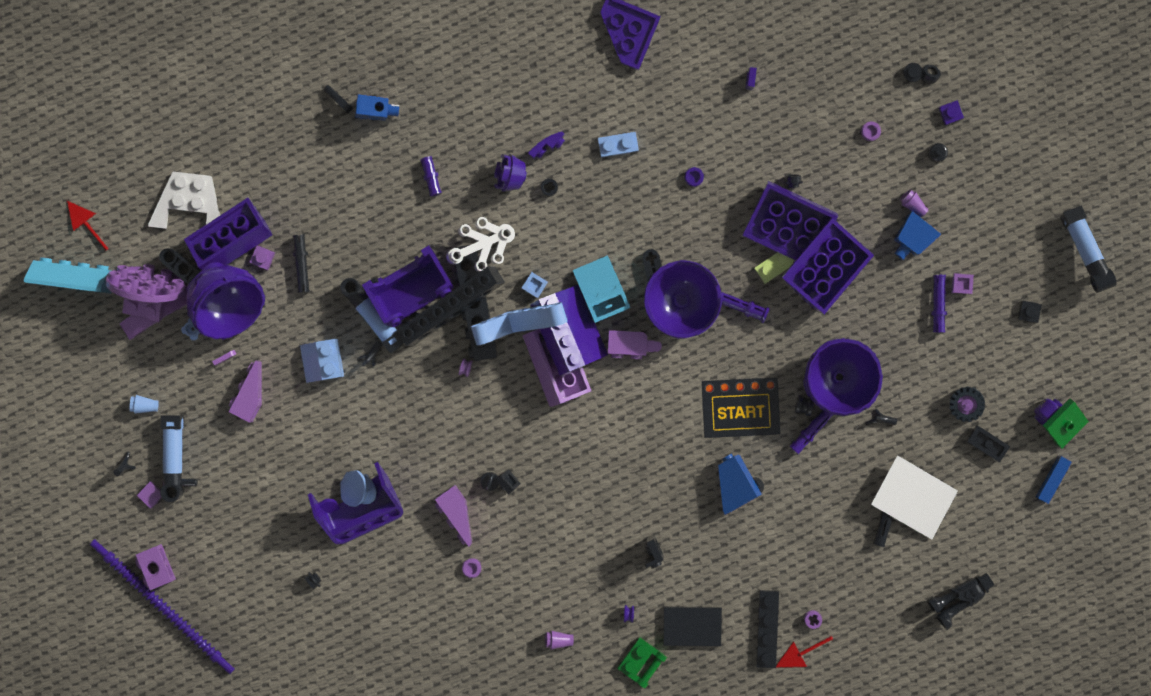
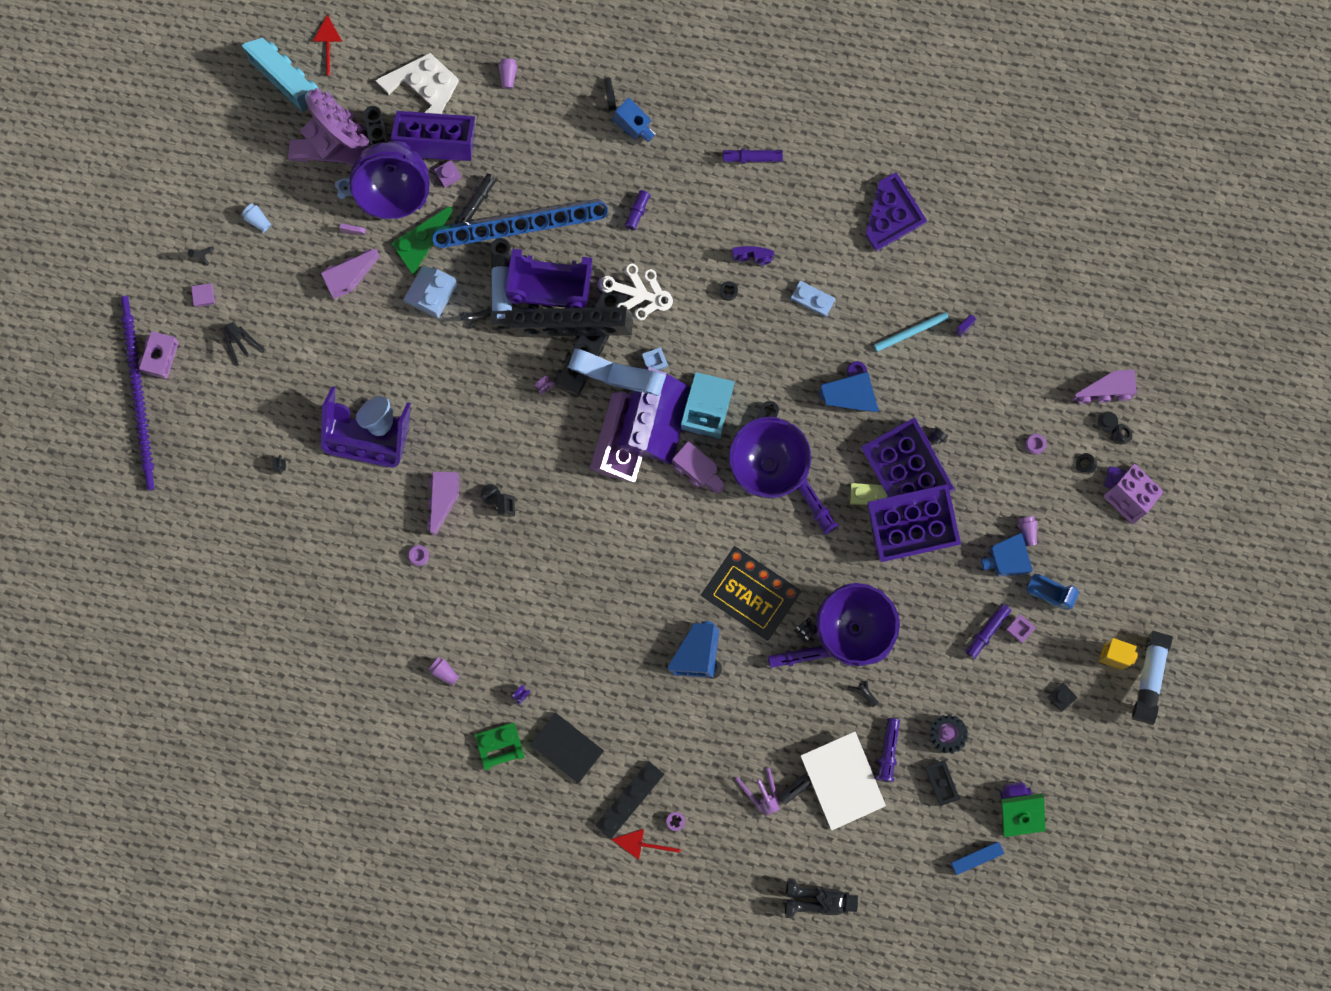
camera: 35 degrees right, 10 degrees down
(172, 457) = (244, 278): piece -> none
(199, 508) = (234, 334): none -> black plant
(245, 142) = (507, 72): none -> medium lavender cone
(282, 332) = (415, 244): none -> green wing
(347, 266) = (511, 229): none -> blue beam
(480, 70) = (752, 156): none -> dark purple pin
(510, 173) = (704, 254): dark purple cone -> none
(653, 548) = (585, 654): black bracket -> none
(702, 198) = (850, 392): none -> blue slope
(712, 113) = (911, 331): none -> medium azure bar
(870, 555) = (768, 804): none -> medium lavender plant
(897, 40) = (1115, 385): none -> medium lavender slope
(926, 117) = (1091, 467): none -> black piece
(935, 457) = (888, 759): none -> dark purple pin
(937, 152) = (1080, 503): black piece -> none
(967, 238) = (1052, 592): none -> blue animal
(974, 115) = (1134, 494): none -> medium lavender bracket
(1051, 250) = (1118, 654): none -> yellow brick

